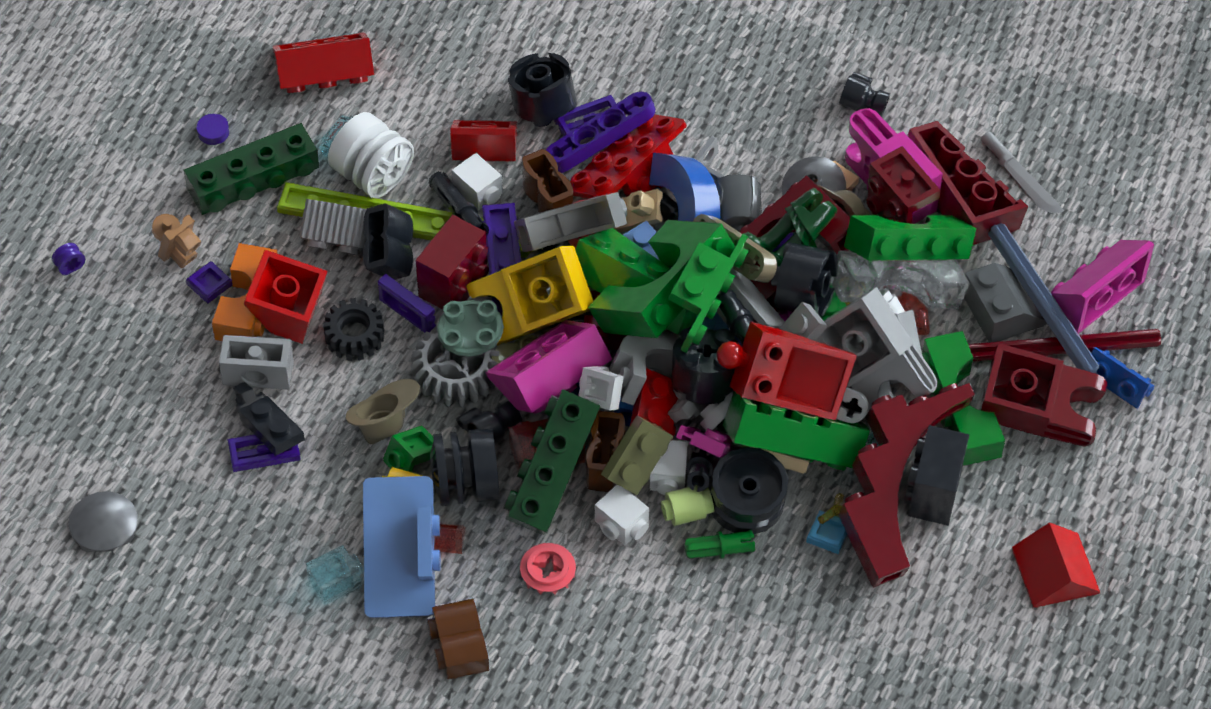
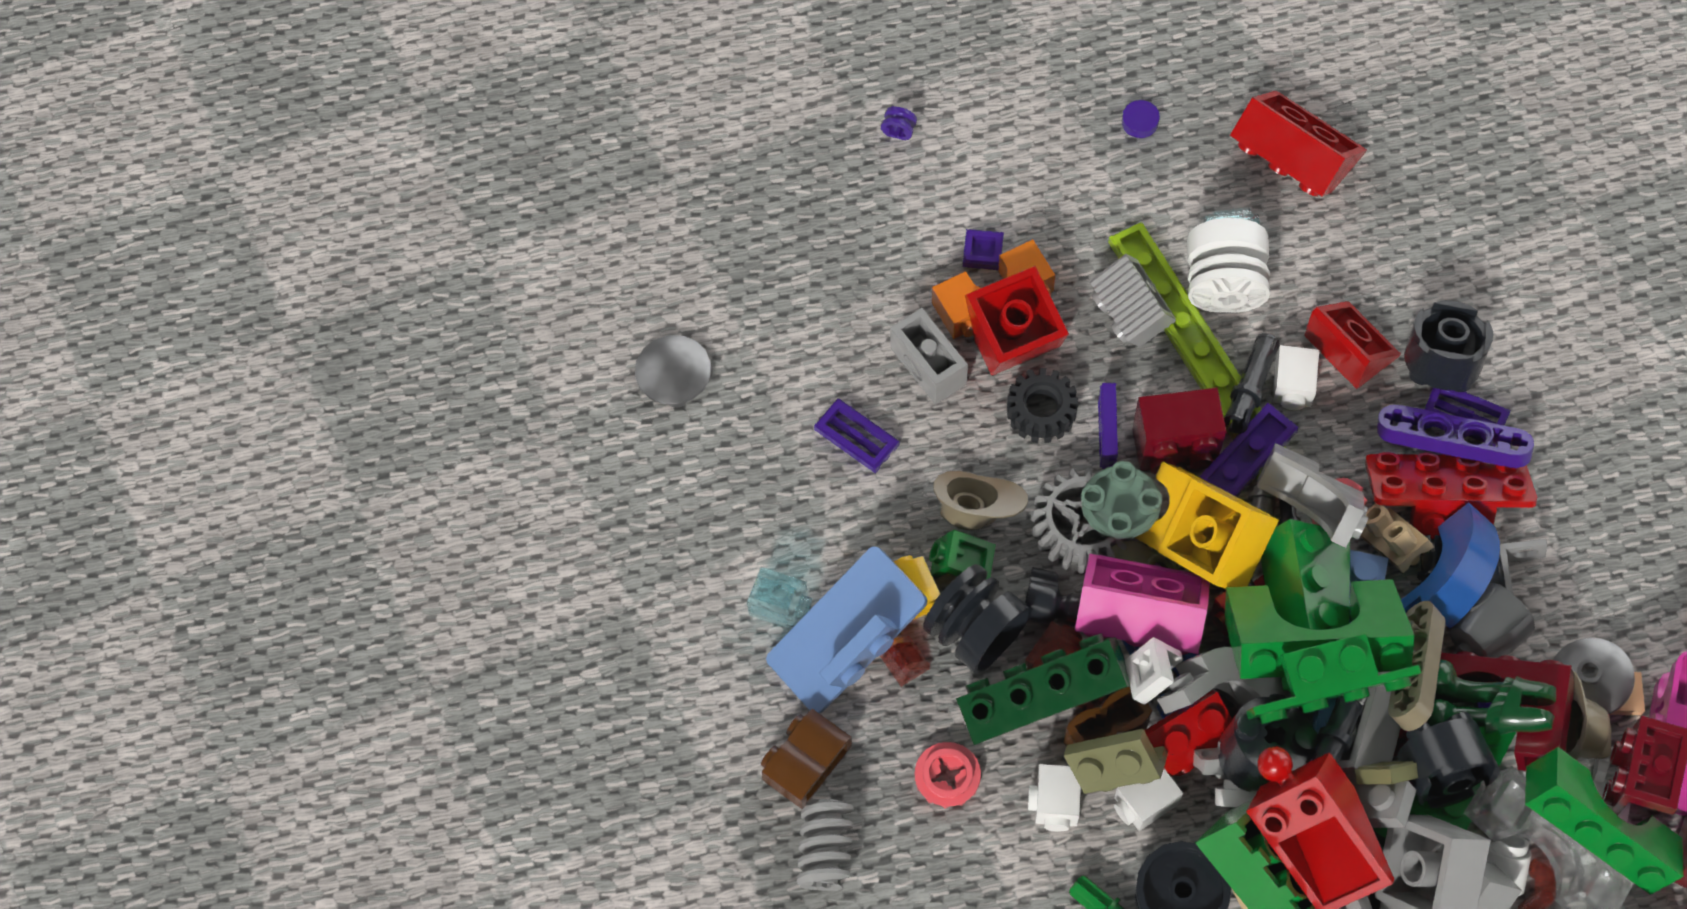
camera: 55 degrees right, 10 degrees up
(176, 239) = (991, 185): medium nougat hips -> none
(251, 169) = (1126, 184): dark green brick -> none
(266, 420) = (882, 414): black hinge -> none
(388, 241) = (1152, 356): black brick -> none
(527, 670) = (823, 844): none -> light grey piece
(544, 182) = (1346, 437): reddish brown brick -> none
(687, 505) = (1121, 845): yellowish green brick -> none
(699, 470) = (1164, 828): black axle -> none
(711, 441) = (1194, 807): dark pink plate -> none
(785, 310) = (1386, 772): none -> olive tile

